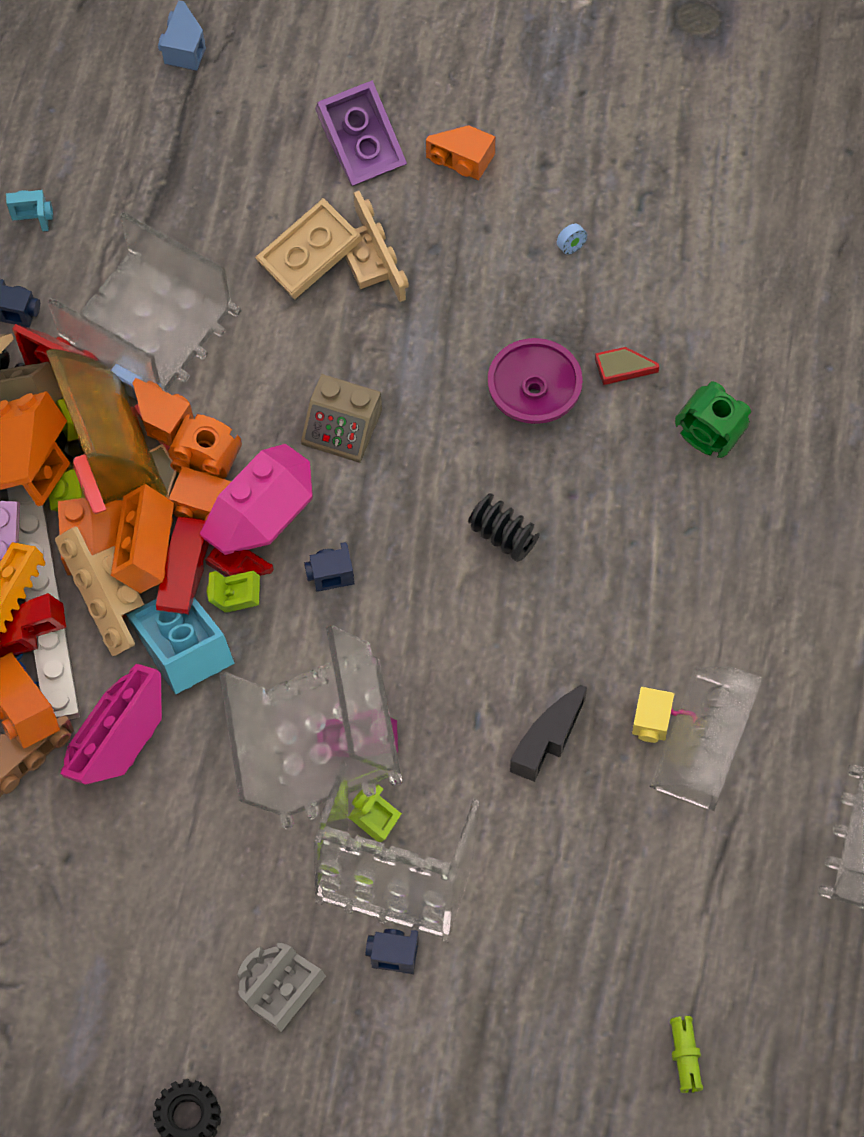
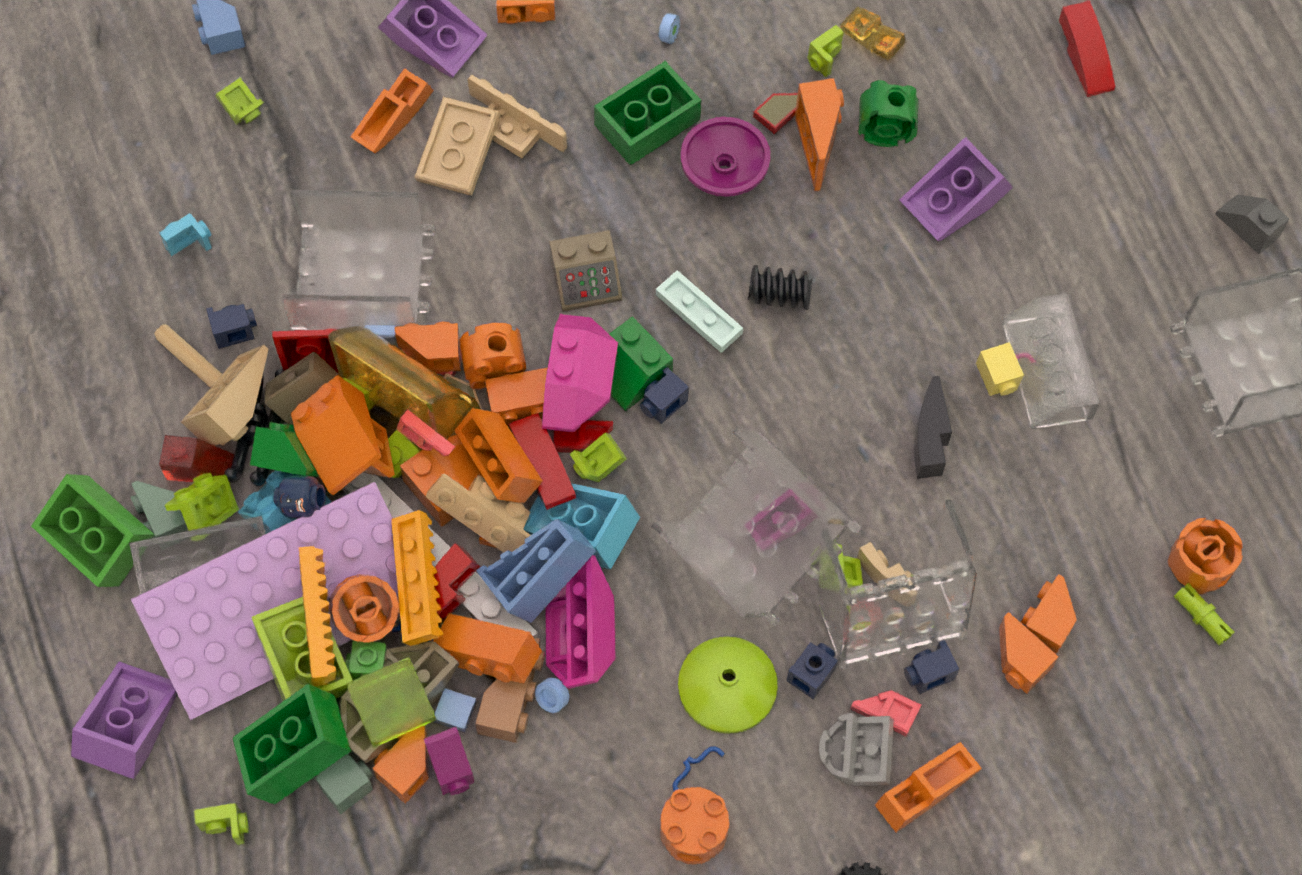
camera: 35 degrees left, 0 degrees up
(49, 775) = (552, 695): none -> light blue tile
(86, 961) = (694, 825): none -> orange brick
(103, 657) = (538, 569): none -> medium blue wedge
(125, 904) = (694, 761): none -> blue piece
(154, 115) = (239, 102): none -> lime bracket
(215, 876) = (727, 704): none -> lime dish
(276, 189) = (392, 111): none -> orange slope
(286, 898) = (811, 679): none -> dark blue brick
(315, 1054) = (927, 786): none -> orange slope
(323, 522) = (637, 363): none -> green slope
(335, 963) = (890, 704): none -> coral tile
(413, 826) = (876, 564): none -> tan slope
(417, 509) = (699, 311): none -> light aqua plate
(484, 990) = (1023, 655): none -> orange slope
(494, 304) = (647, 112): none -> green brick
(535, 972) = (1054, 615): none -> orange slope
(641, 398) = (817, 122): none -> orange slope
(701, 328) = (824, 49): none -> lime bracket
(722, 999) = (1205, 554): none -> orange brick
(732, 526) = (956, 191): none -> medium lavender slope
(760, 339) = (872, 34): none -> clear yellow slope

